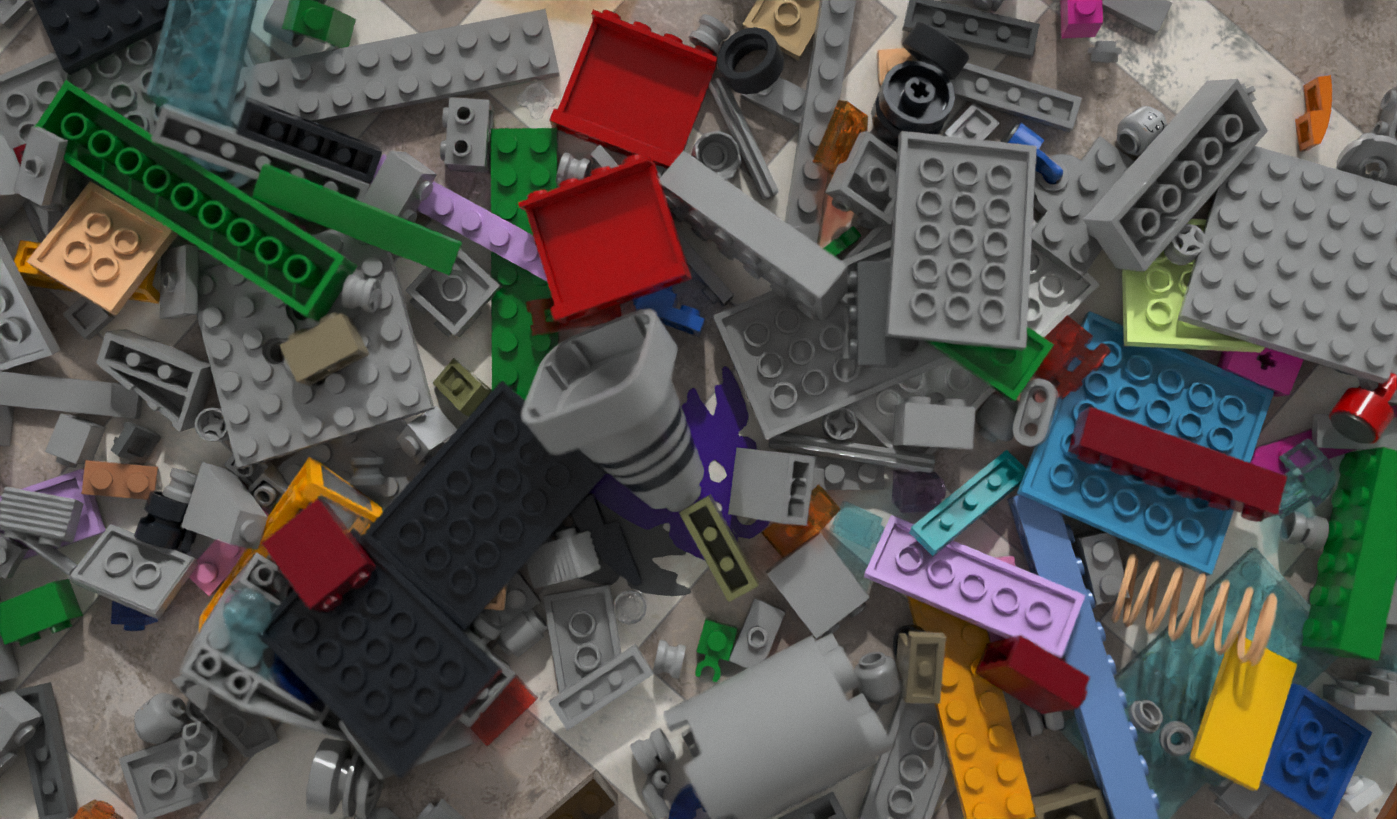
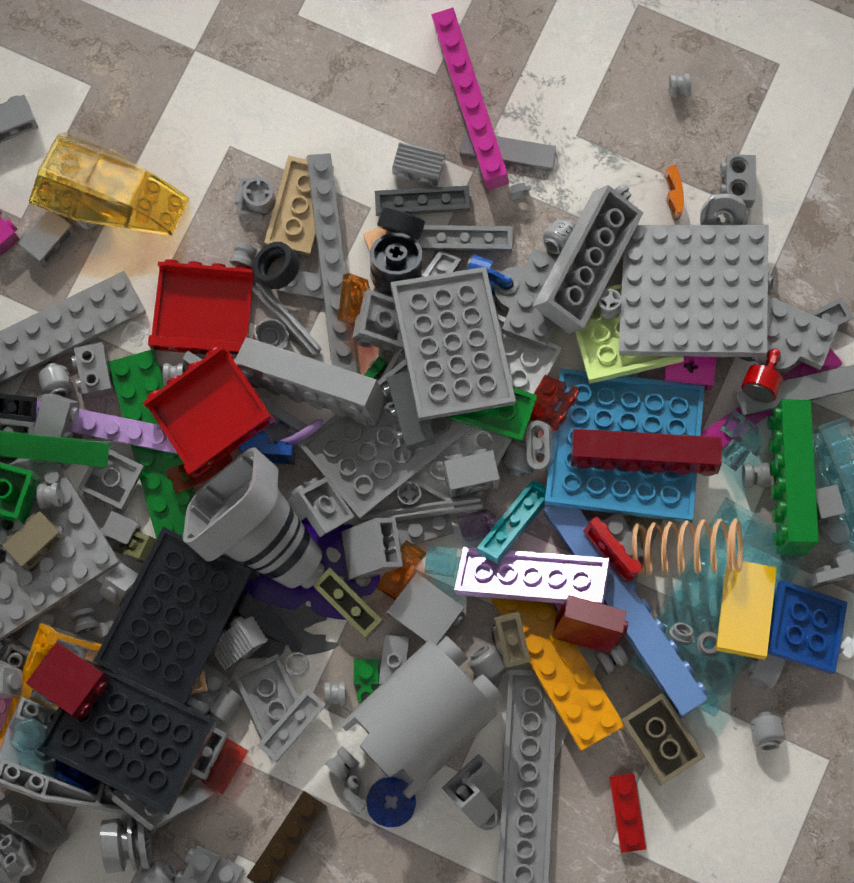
camera: 10 degrees left, 10 degrees down
(414, 134) = (55, 380): none -> light grey head
(447, 359) = (119, 528): none -> light grey panel
(719, 410) = (320, 505): none -> light grey plate
(724, 304) = (304, 433): none -> lavender piece
(1090, 581) = (610, 548): none -> red plate

